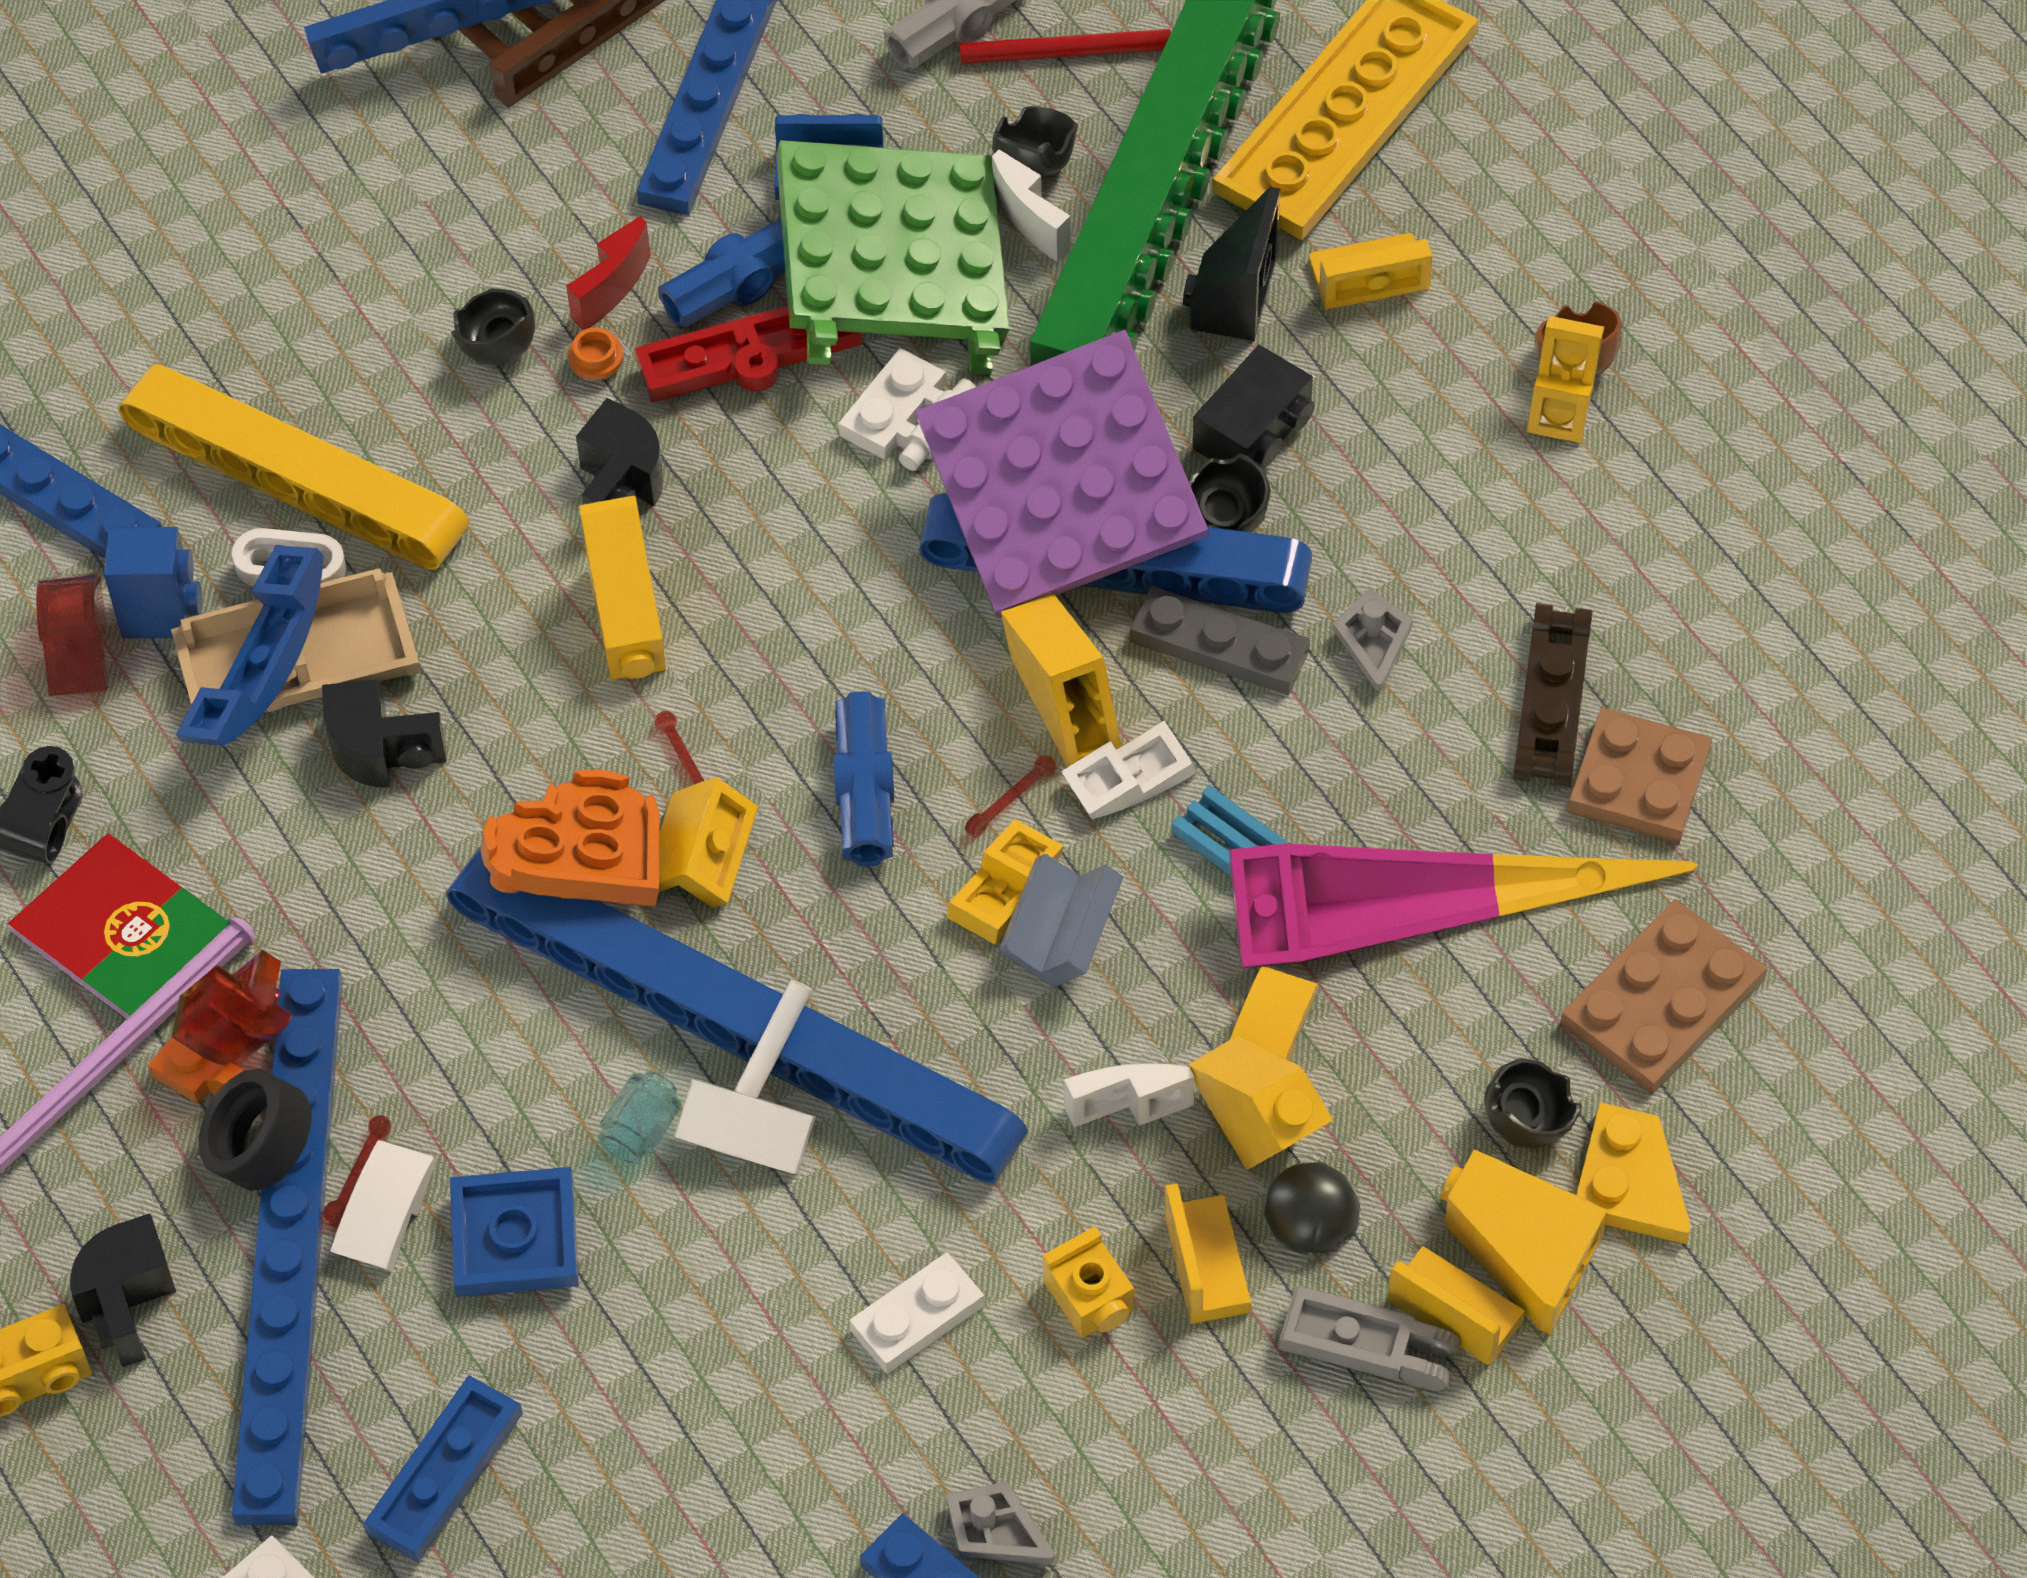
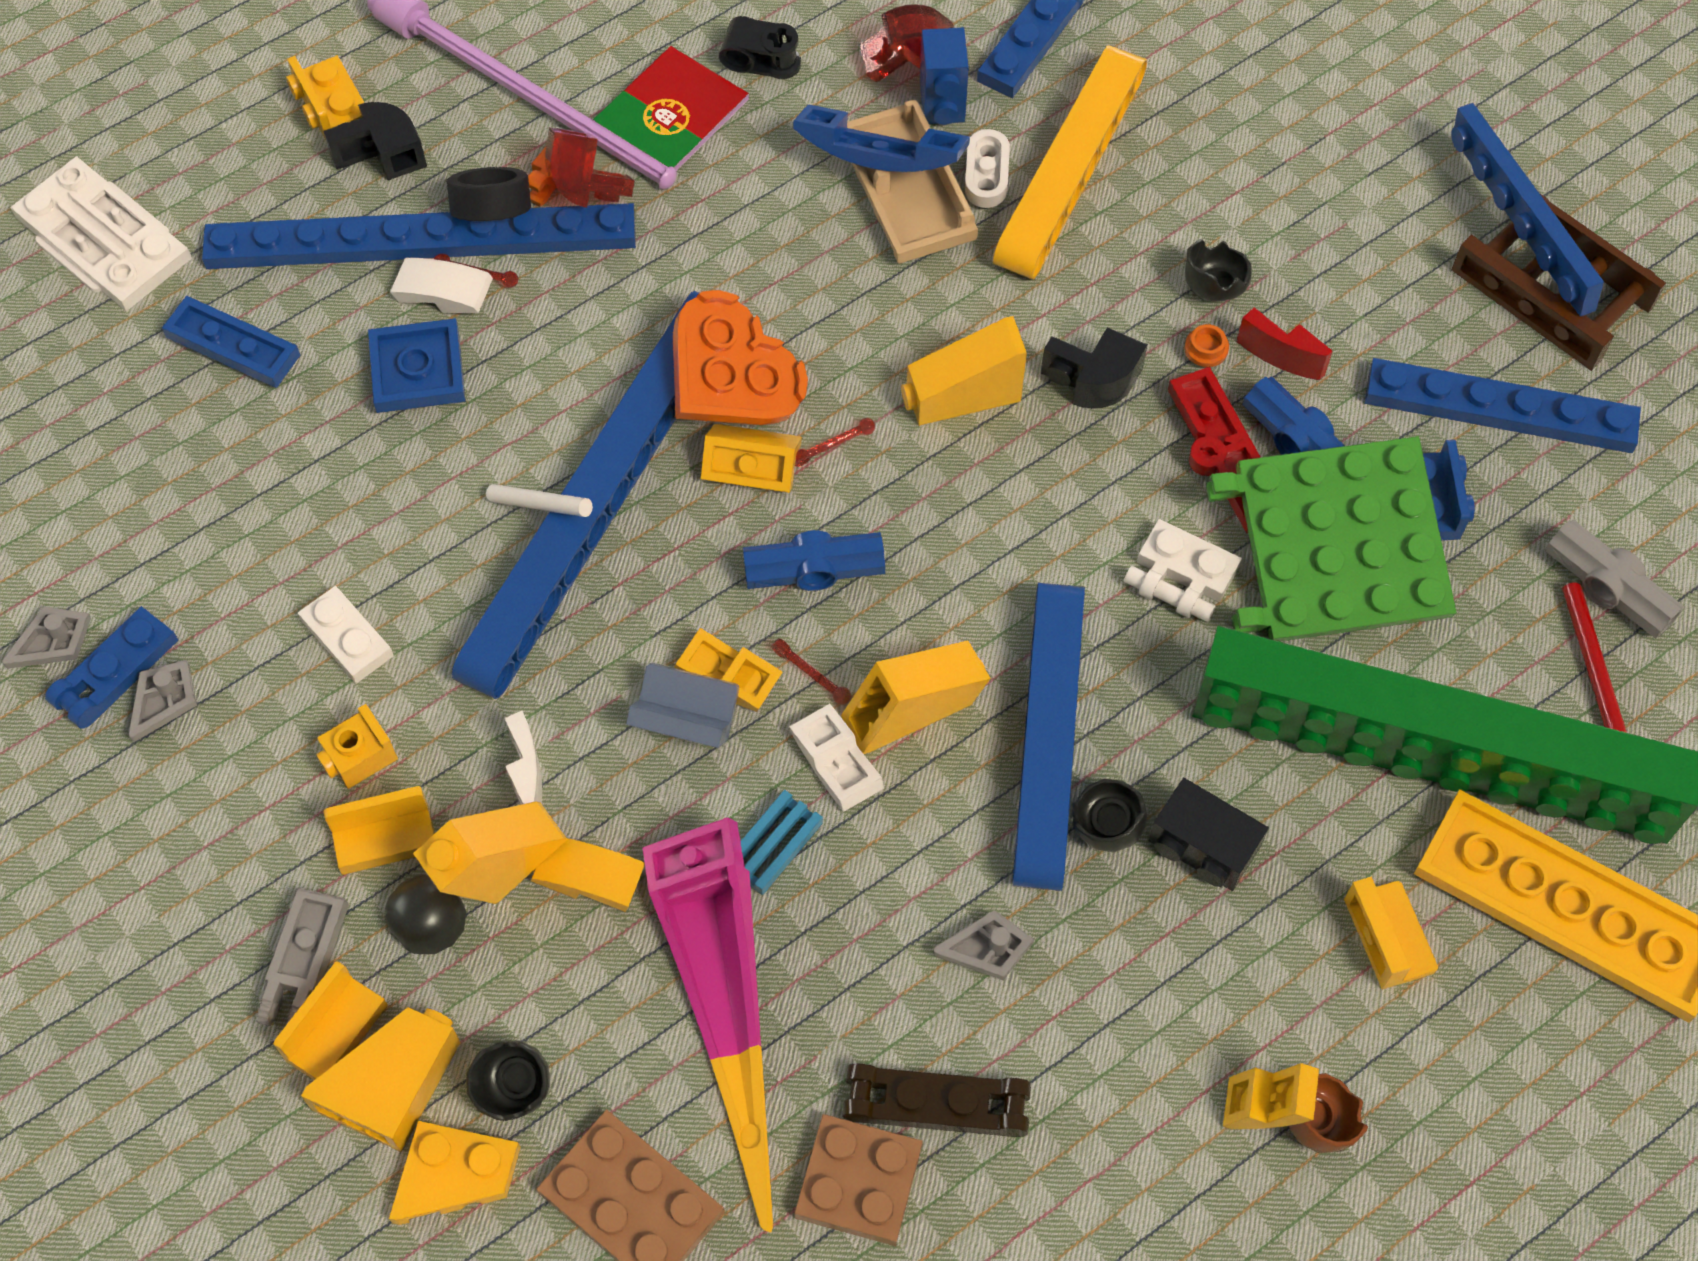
camera: 85 degrees right, 5 degrees up
(370, 742) = (834, 227): black brick -> none
(639, 1117) = (508, 433): clear light blue brick -> none
(744, 1126) = (491, 508): white slope -> none
(1022, 201) = (1410, 638): white slope -> none
(1037, 139) = (1473, 643): pearl dark grey hair -> none
(1061, 473) = (1097, 668): medium lavender plate -> none
(1219, 640) = (974, 823): dark grey plate -> none
(1237, 273) = (1354, 815): black slope -> none

